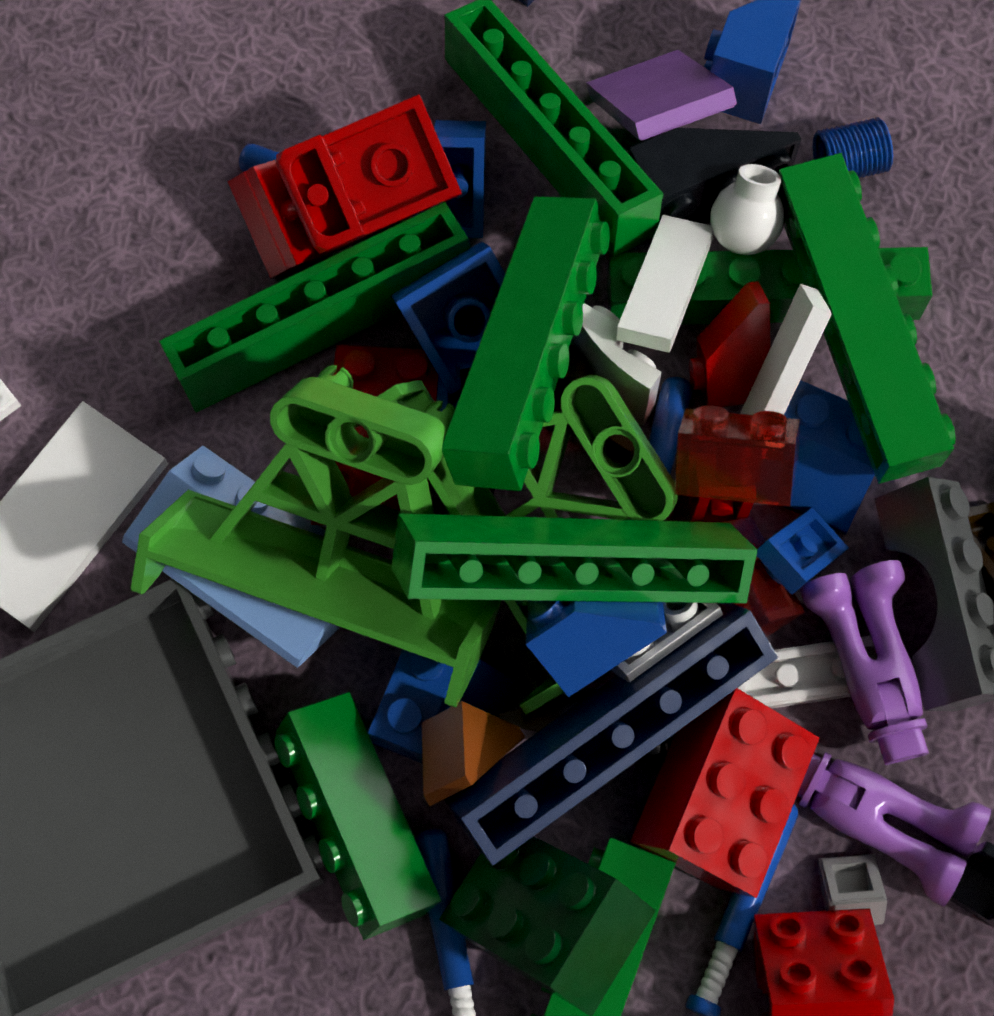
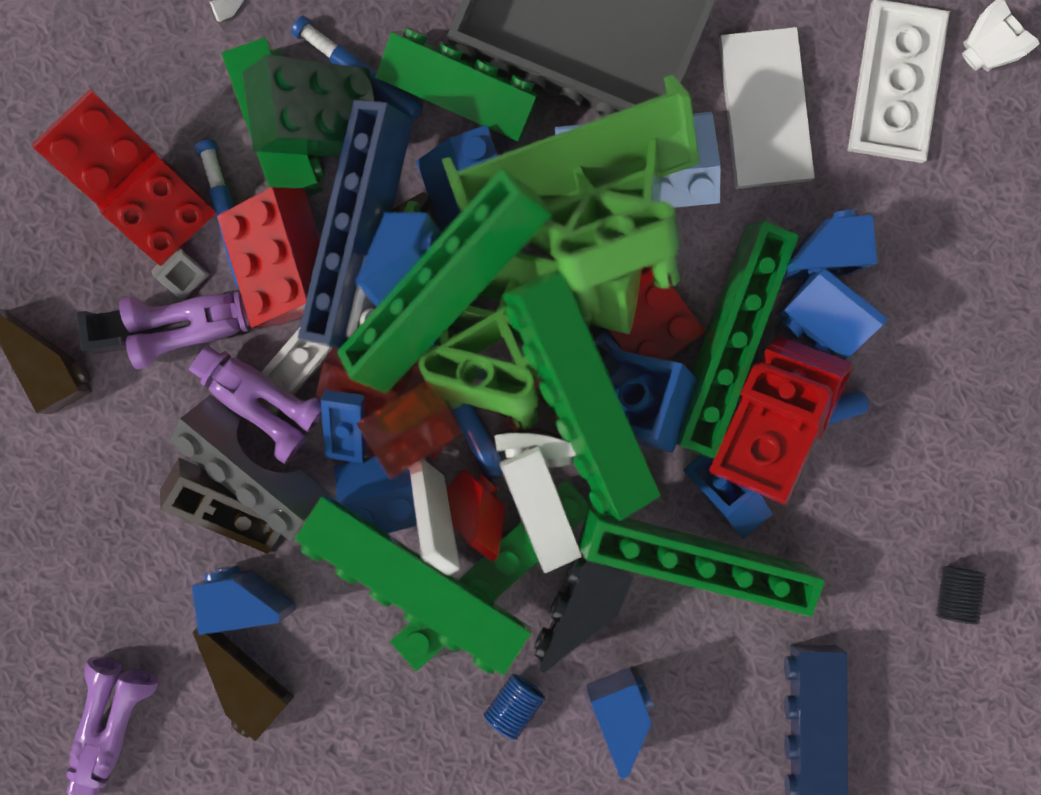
camera: 140 degrees right, 15 degrees up
(134, 303) = (838, 245): none -> blue slope
(204, 248) = (830, 315): none -> blue slope
(461, 748) = (422, 151): dark orange slope -> none
(661, 94) = (652, 640): medium lavender tile -> none
(749, 211) = (531, 598): white piece -> none

